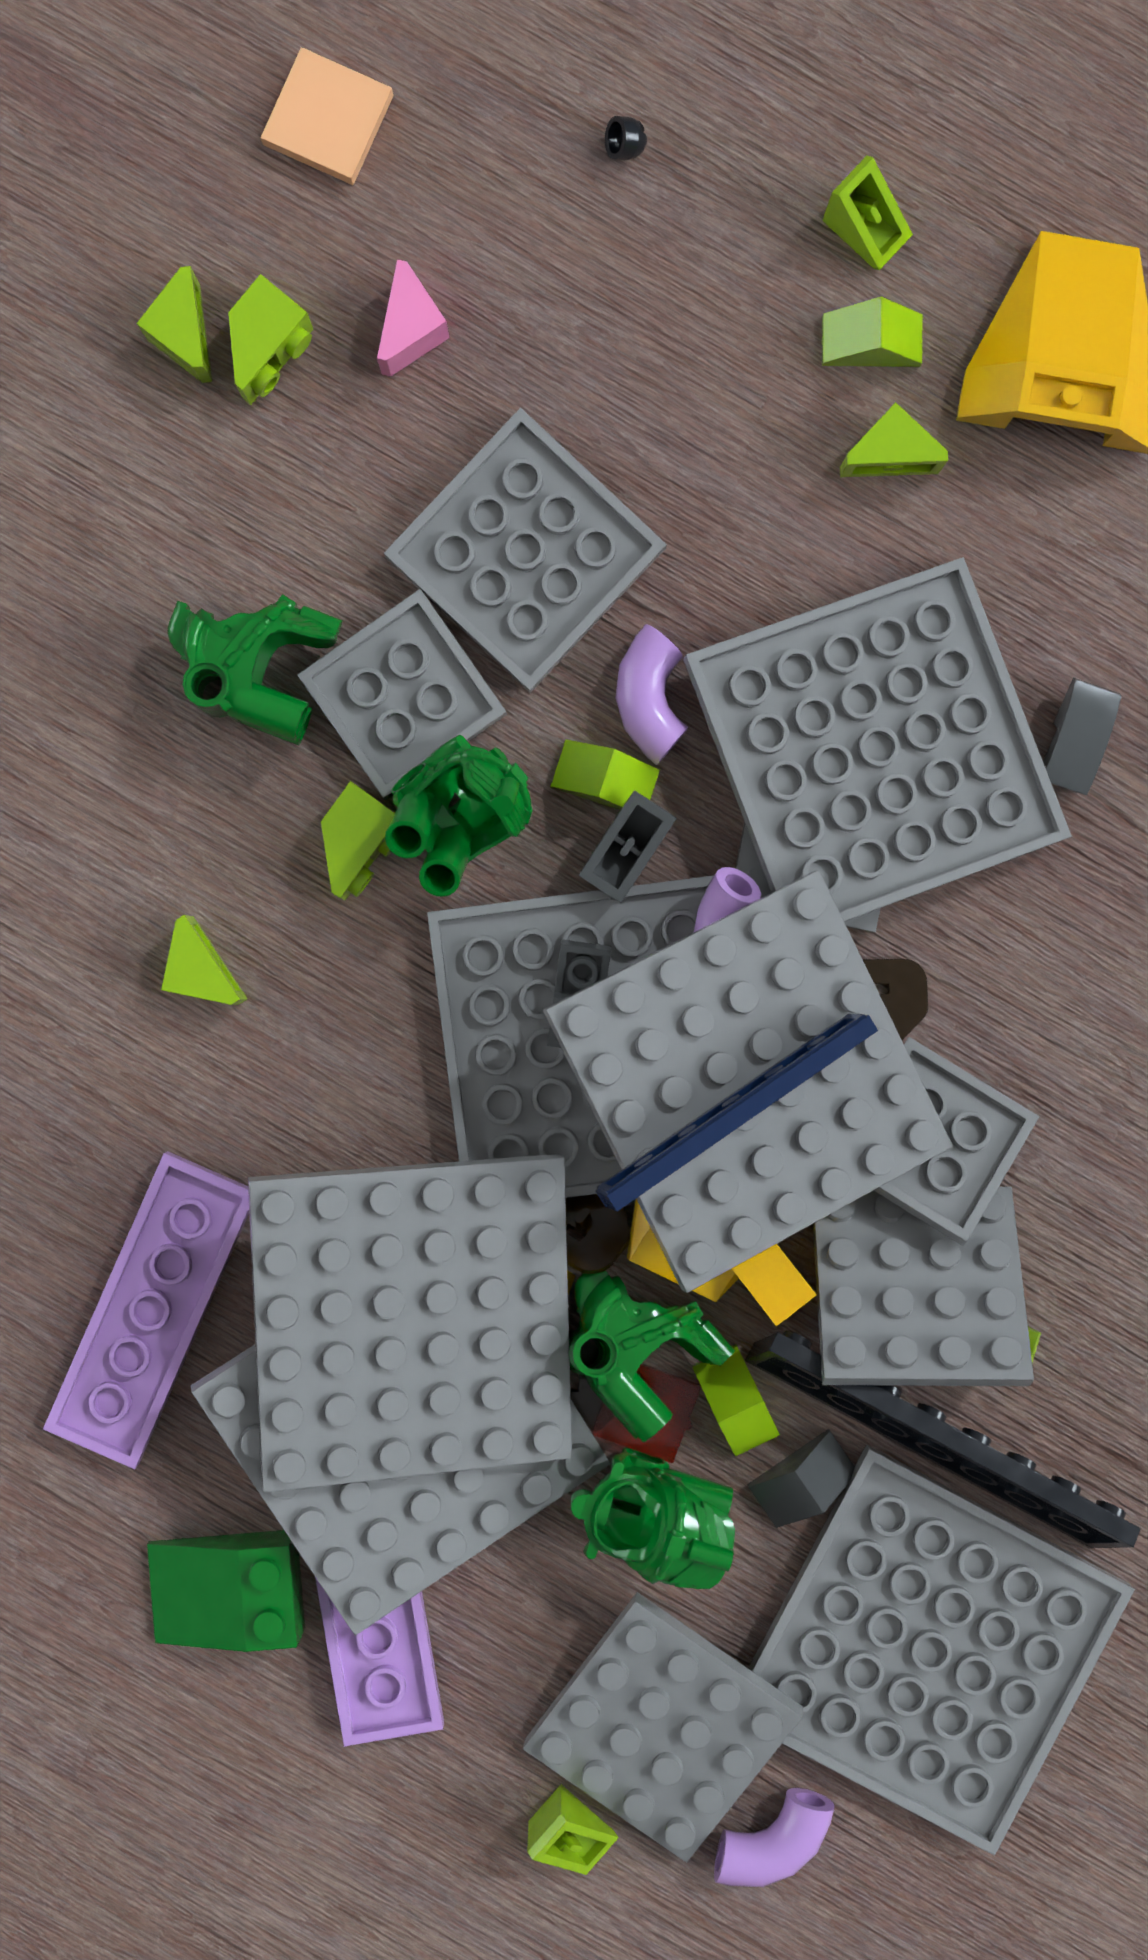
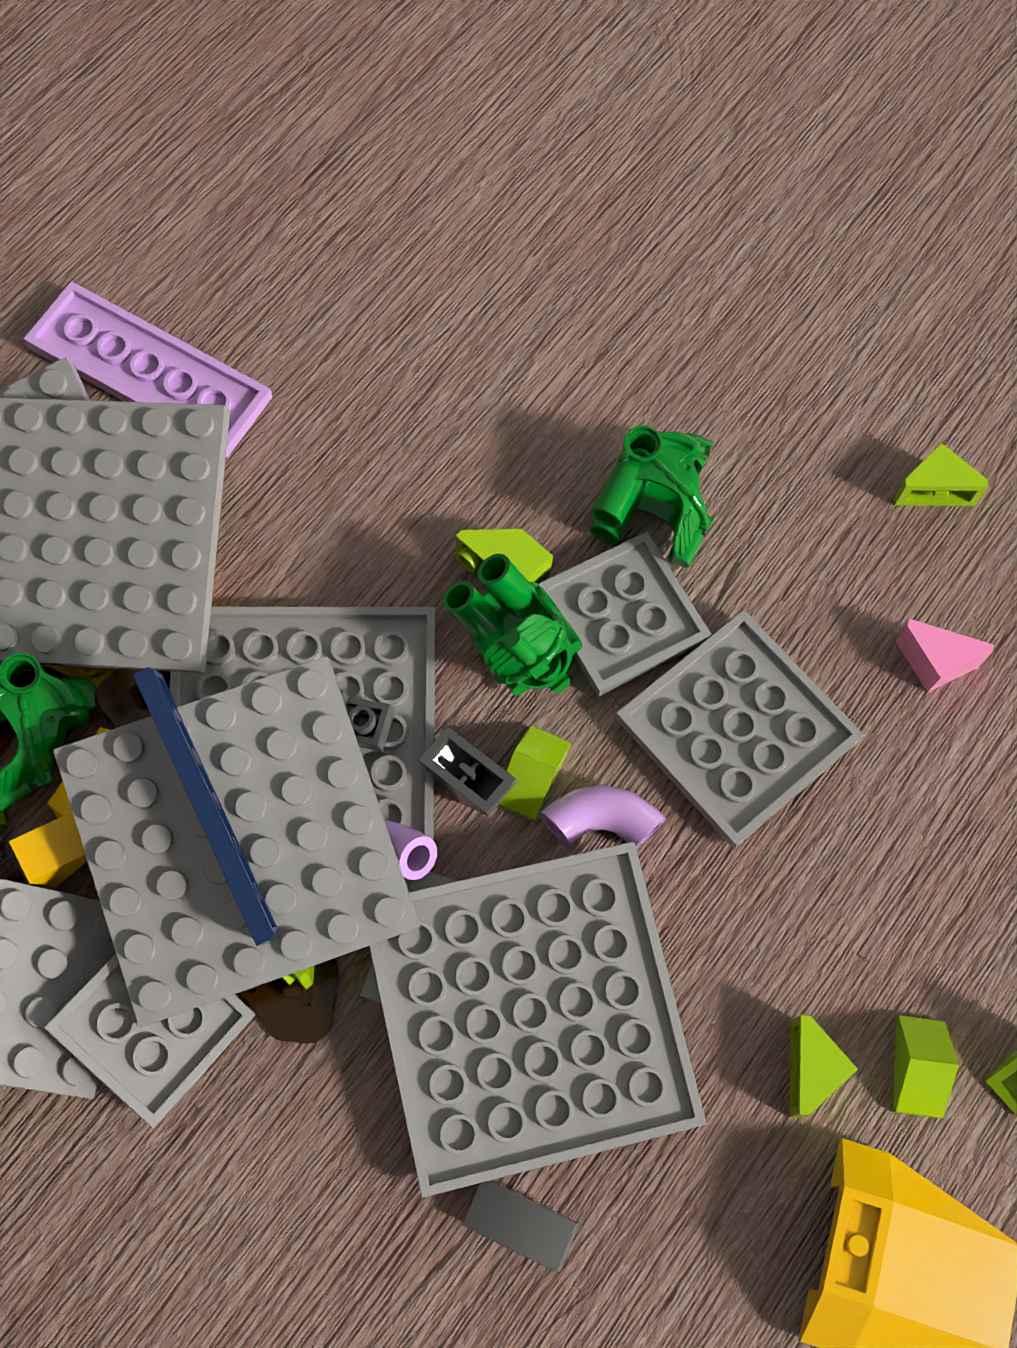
camera: 95 degrees right, 20 degrees down
(197, 968) = (416, 431): lime slope -> none
(264, 335) = (928, 540): lime slope -> none

